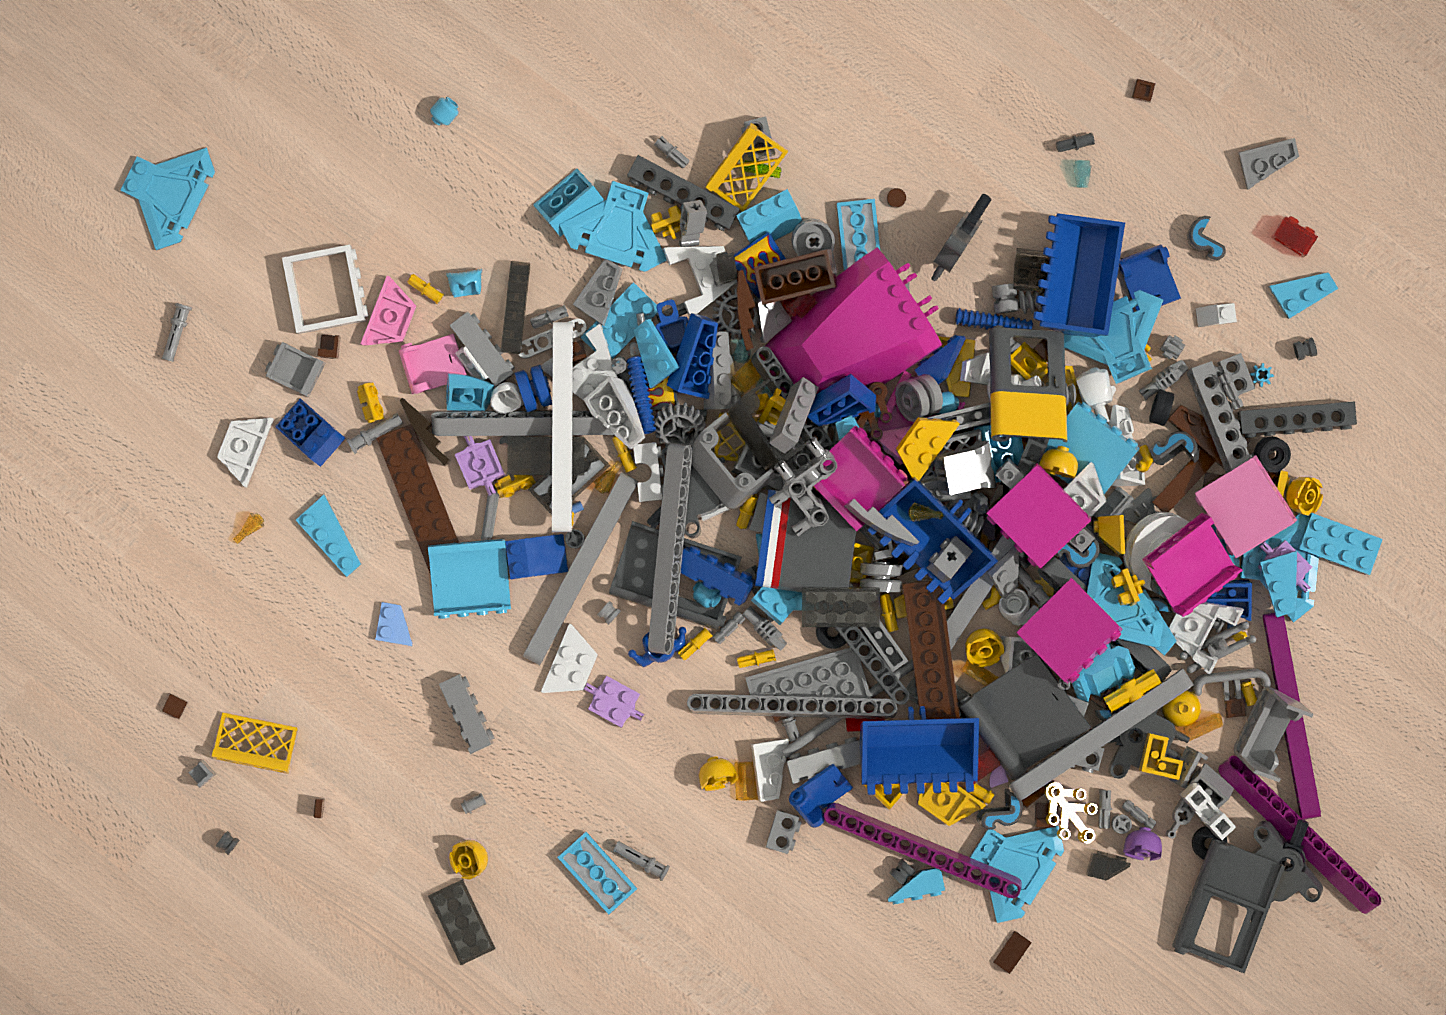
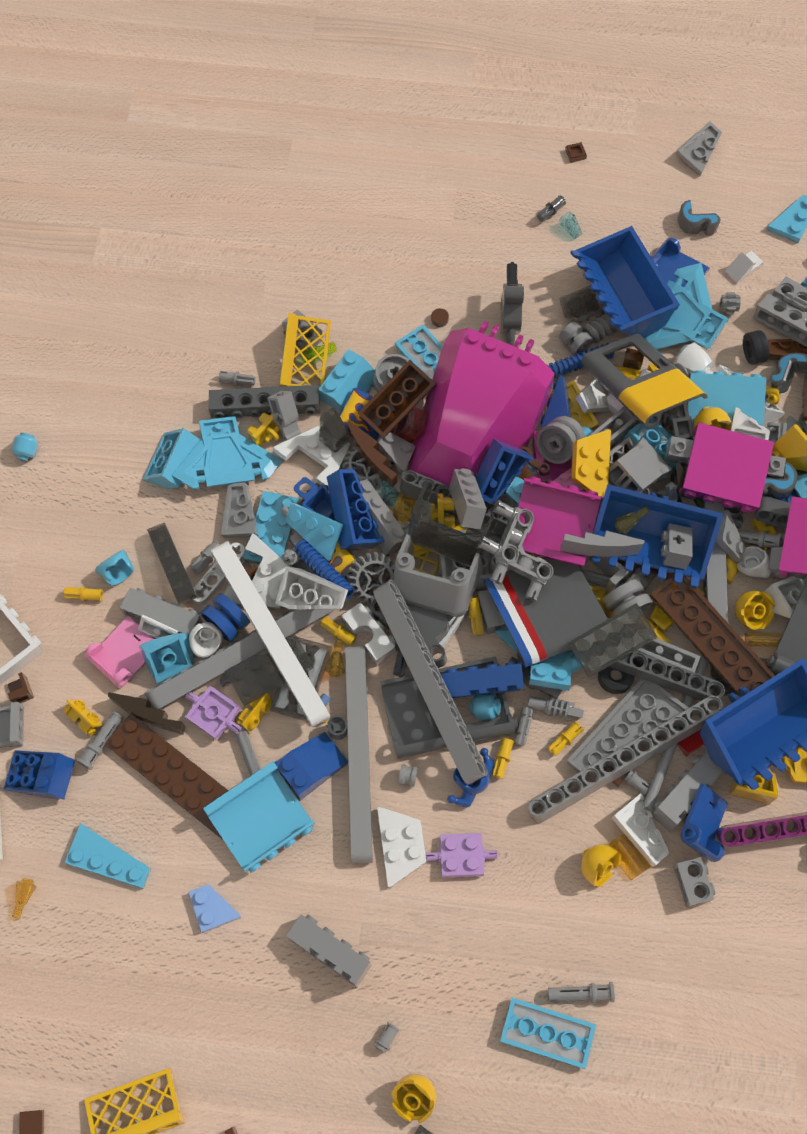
camera: 25 degrees left, 20 degrees down
(390, 316) = (62, 634): bright pink wing -> none
(1164, 379) = (740, 328): light grey hinge -> none
(1294, 236) = (760, 183): clear red brick -> none

